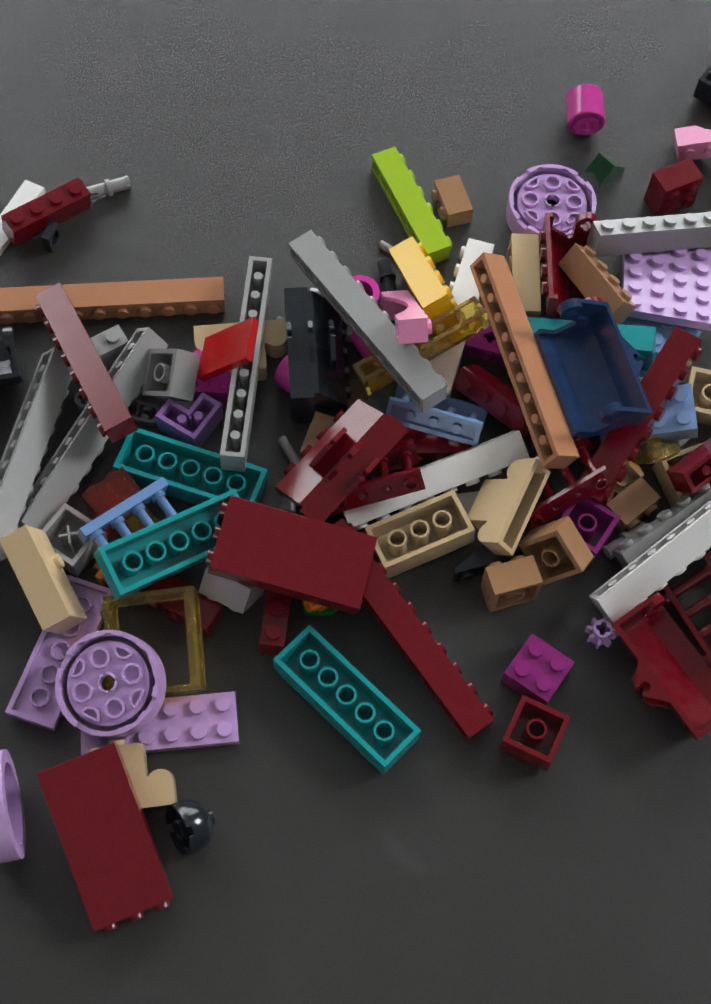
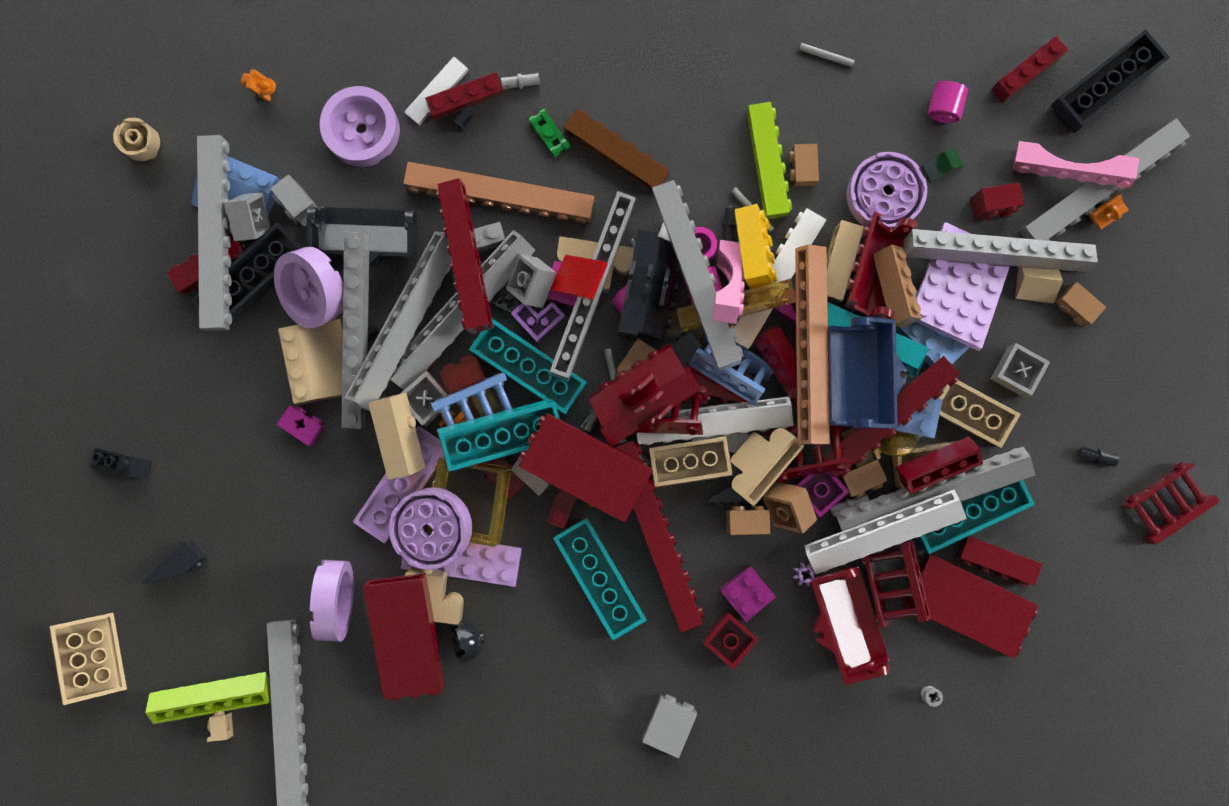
camera: 20 degrees right, 20 degrees up
(153, 231) = (549, 133): none -> green plate
(232, 230) = (615, 150): none -> reddish brown brick
(441, 98) = (826, 55): none -> light grey bar
(491, 866) = (669, 725): none -> light grey brick
(658, 66) = (1029, 69): none -> dark red brick

